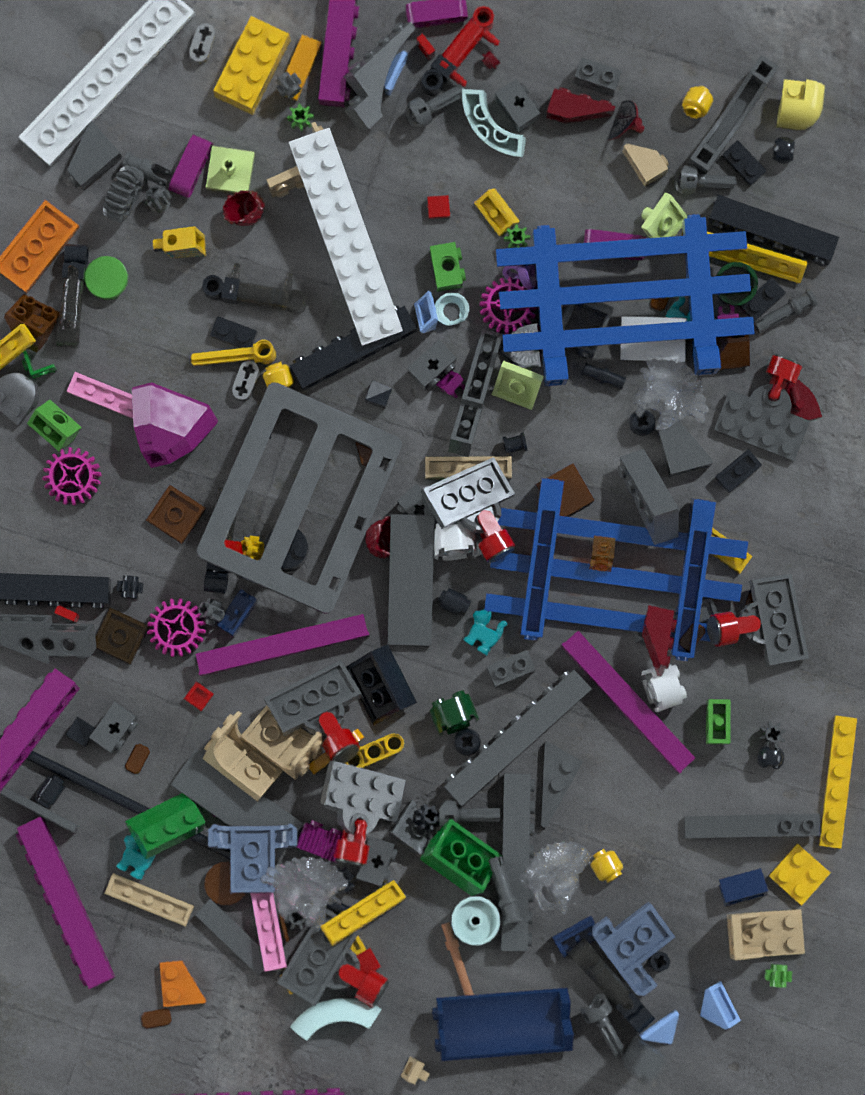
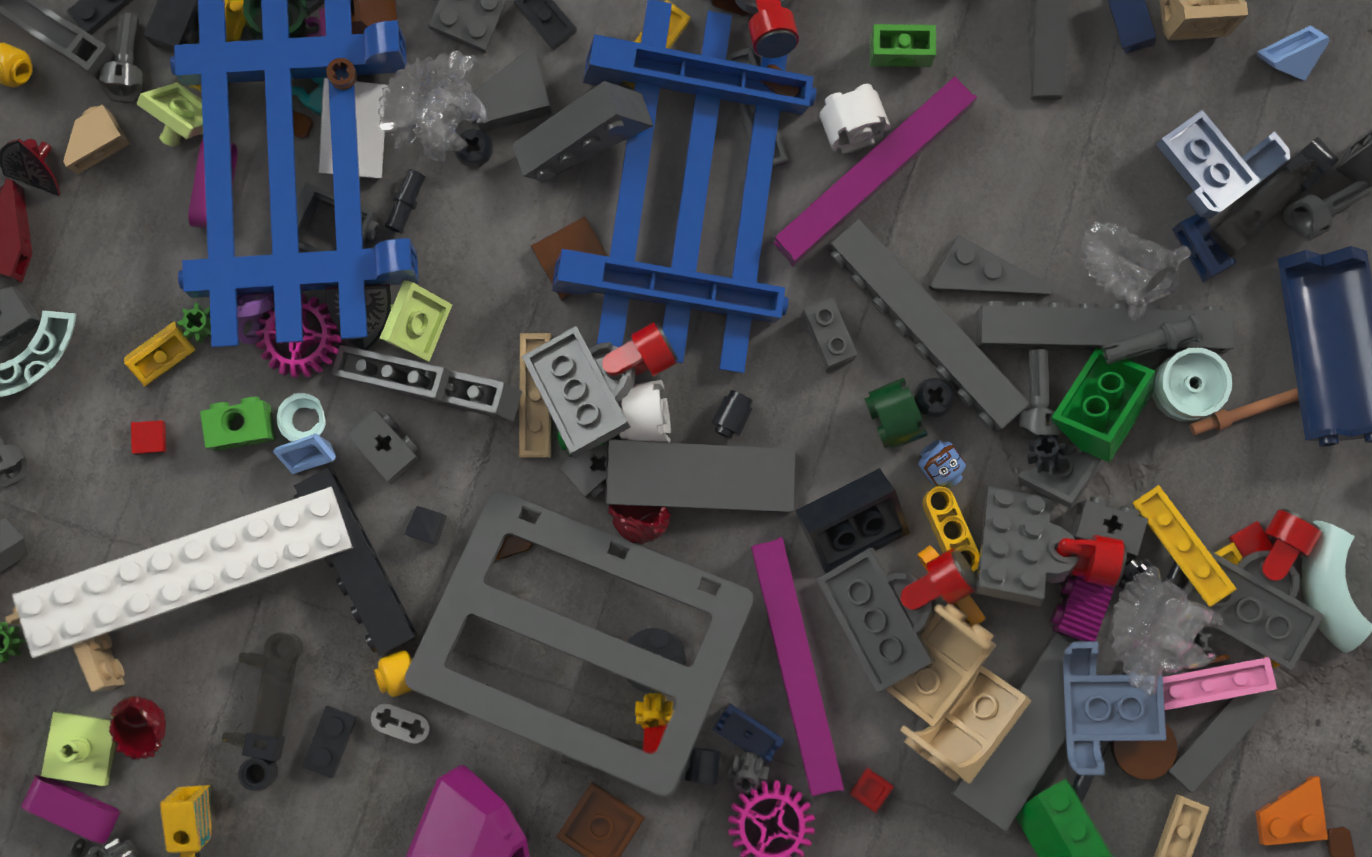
camera: 90 degrees left, 0 degrees up
(236, 355) = (362, 737): yellow axle -> none
(420, 746) = (942, 464): none -> medium blue head
(450, 383) = (410, 419): magenta tile -> none
(483, 634) = (776, 377): teal animal -> none
(515, 443) = (502, 327): black bush -> none
(602, 553) = (664, 201): clear orange brick -> none
(606, 865) = (1106, 201): yellow head -> none
(656, 635) = (783, 123): dark red slope -> none
(662, 967) = (1244, 129): black bush -> none
(663, 1030) = (1328, 127): light blue slope -> none
(683, 324) = (341, 63): none -> reddish brown bush

